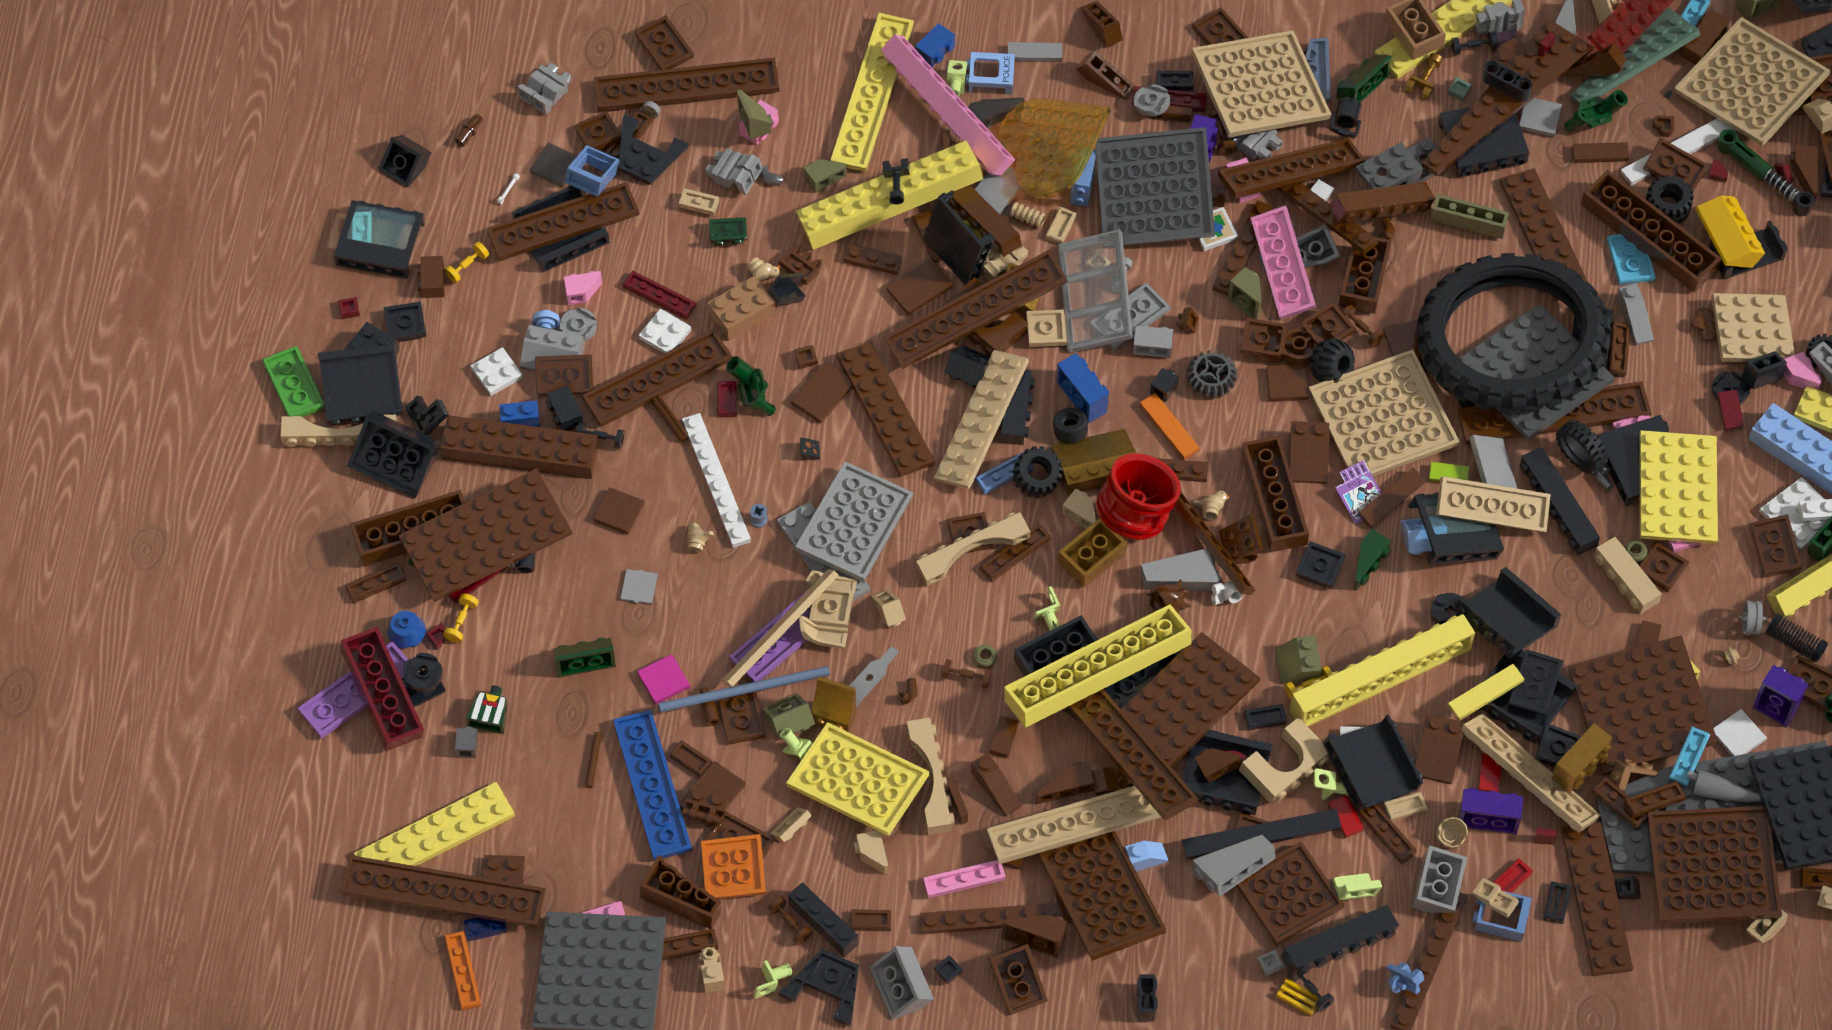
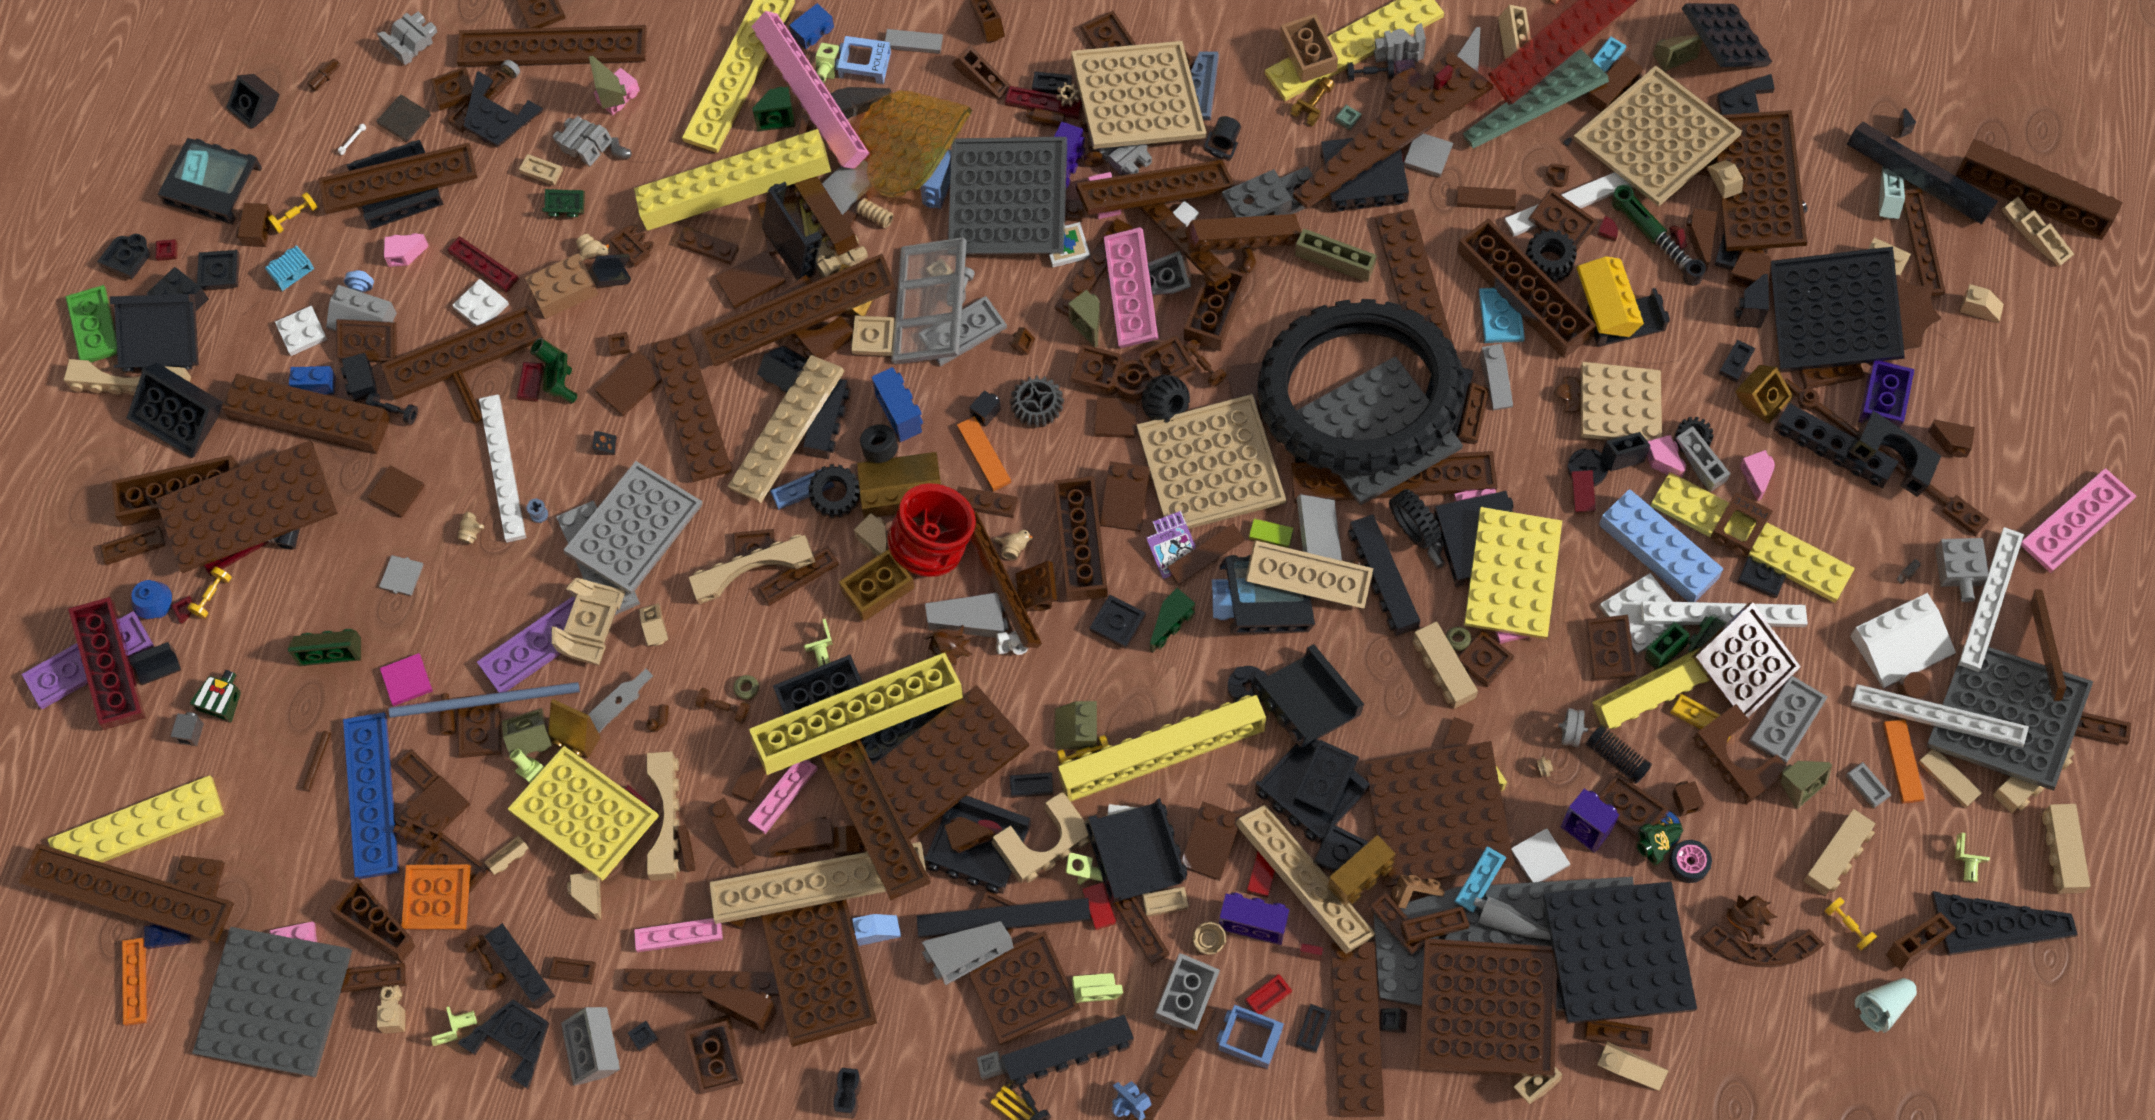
camera: 10 degrees right, 5 degrees up
(311, 316) = (125, 255): none -> black plate
(426, 418) = (217, 371): black plate -> none
(430, 680) = (158, 659): black plate -> none
(474, 314) = (289, 268): none -> medium azure brick
(579, 322) = (394, 287): light grey tile -> none
(589, 182) = (417, 134): medium blue window -> none
(780, 627) = (530, 638): tan tile -> none
(824, 173) = (673, 151): olive slope -> none
(896, 196) = (733, 182): black bar -> none
(917, 127) = (774, 110): none -> dark green slope
(1037, 747) = (782, 795): none -> bright pink plate
(1061, 225) = (908, 227): tan tile -> none
(1151, 100) = (1023, 102): light grey tile -> none
(1153, 341) = (980, 360): light grey brick -> none
(1191, 93) = (1068, 100): none -> tan gear
(1365, 78) = (1249, 99): dark green slope -> none
(1486, 692) = (1269, 783): light yellow tile -> none
(1495, 898) = (1243, 1020): tan slope -> none
(1507, 81) = (1398, 121): black beam -> none
(1596, 110) = (1487, 153): dark green piece -> none
(1599, 63) = (1498, 102): reddish brown slope -> none

